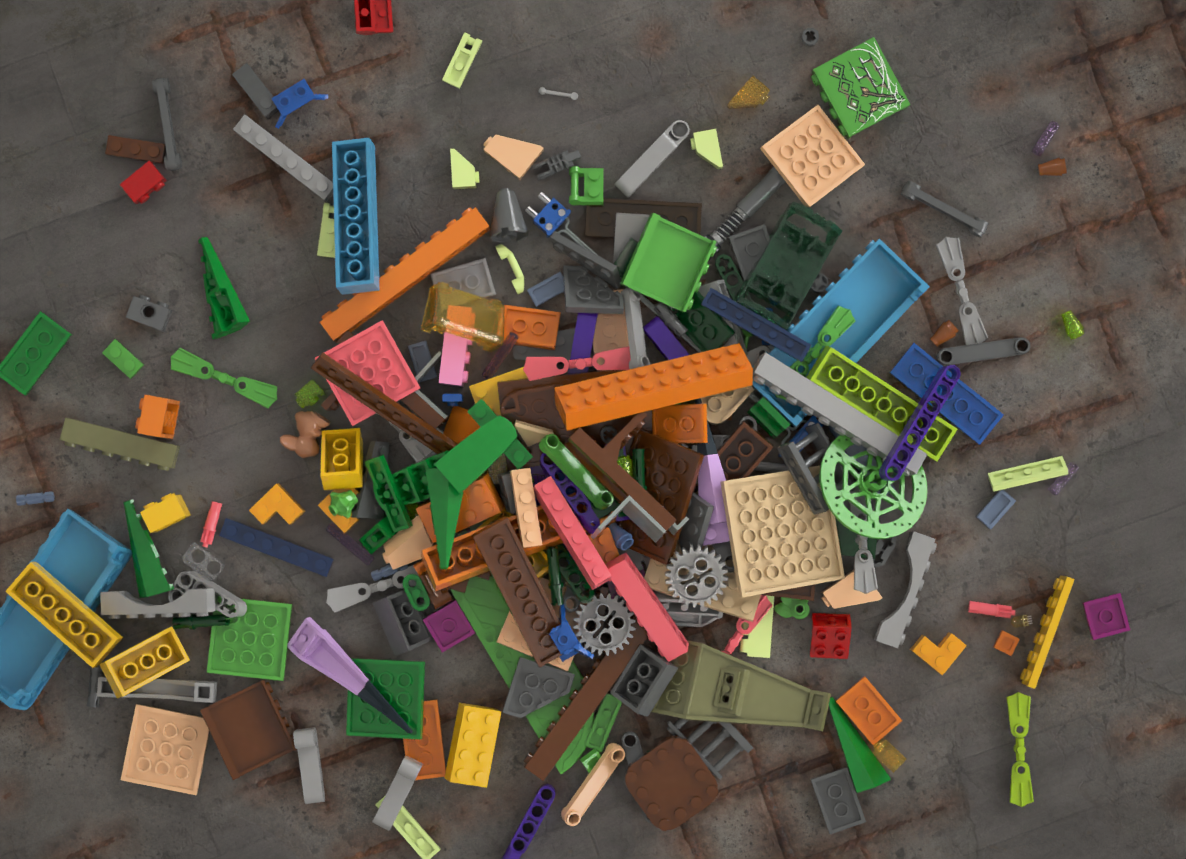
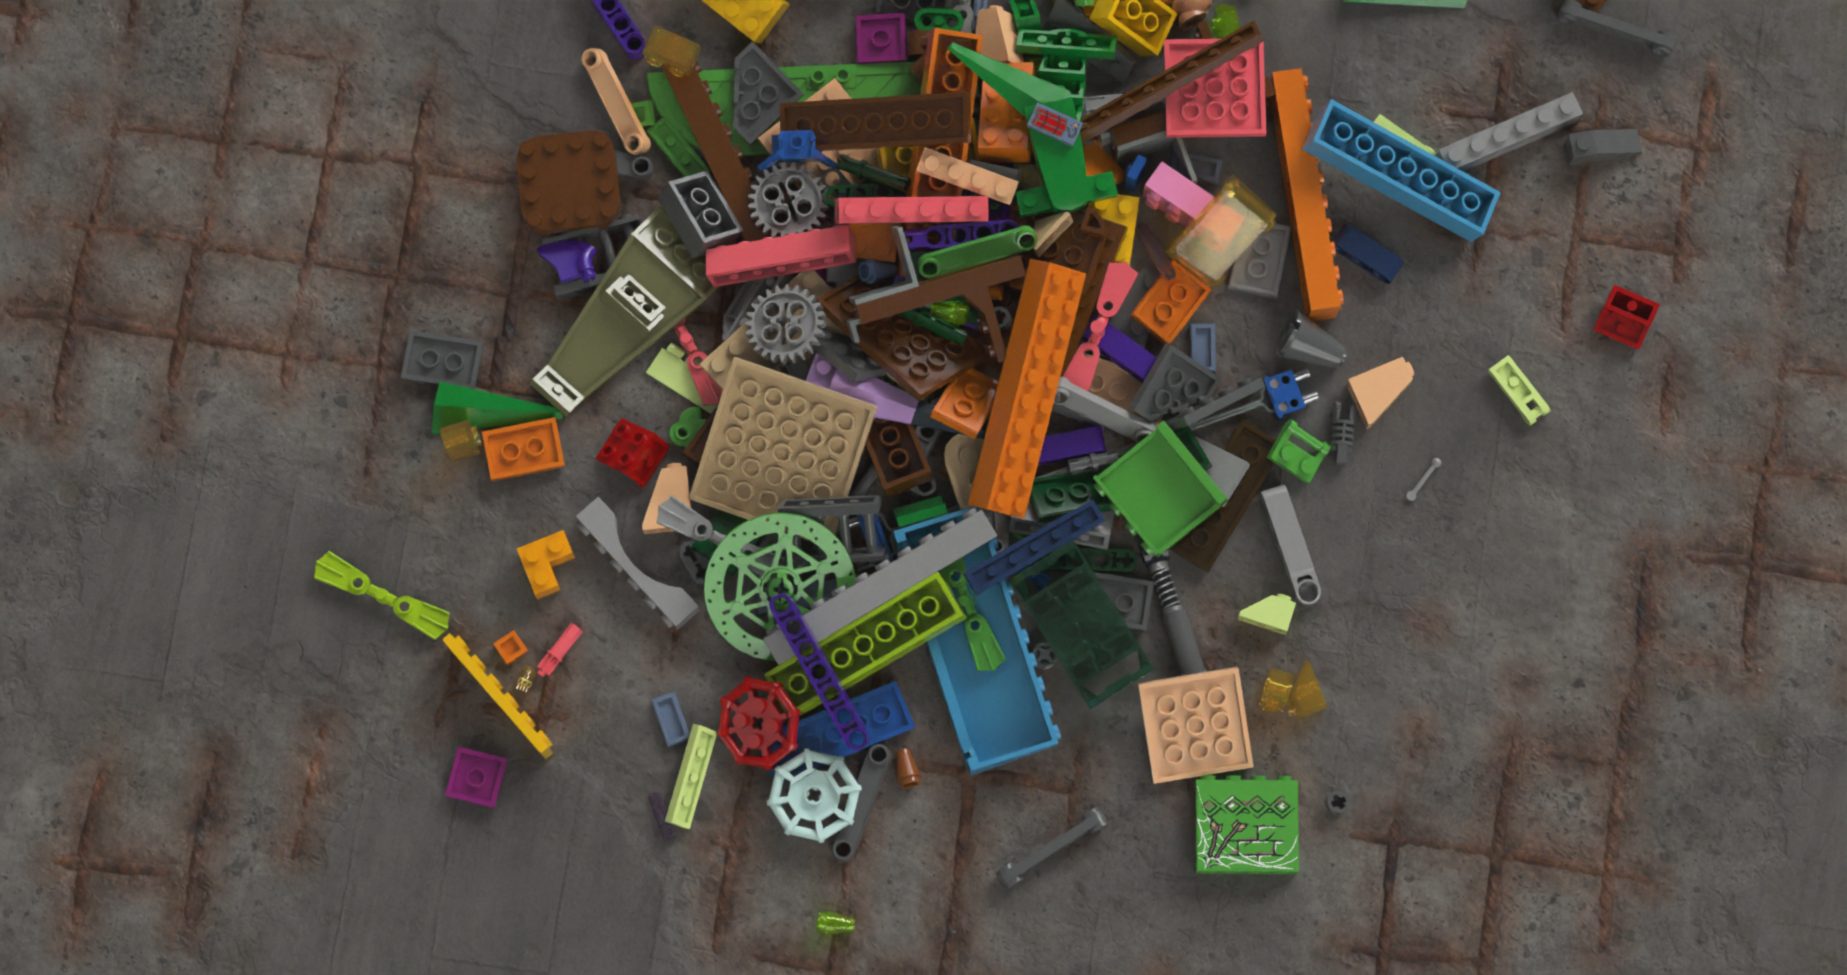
camera: 120 degrees right, 10 degrees down
(294, 98) = (1572, 176): blue piece -> none
(422, 212) = (1367, 253): none -> dark blue beam
(461, 465) = (1054, 124): none -> tile
(462, 172) = (1390, 322): yellowish green slope -> none
(504, 253) = (1227, 318): yellowish green bar -> none
(543, 762) = (671, 51): none -> clear yellow brick
(723, 751) = (570, 259): none -> dark purple arm
(760, 114) = (1276, 690): none -> clear yellow brick
(952, 259) = (987, 823): light grey piece -> none
(980, 448) = (745, 725): none -> red plate
(999, 395) = (812, 810): none -> light aqua plate

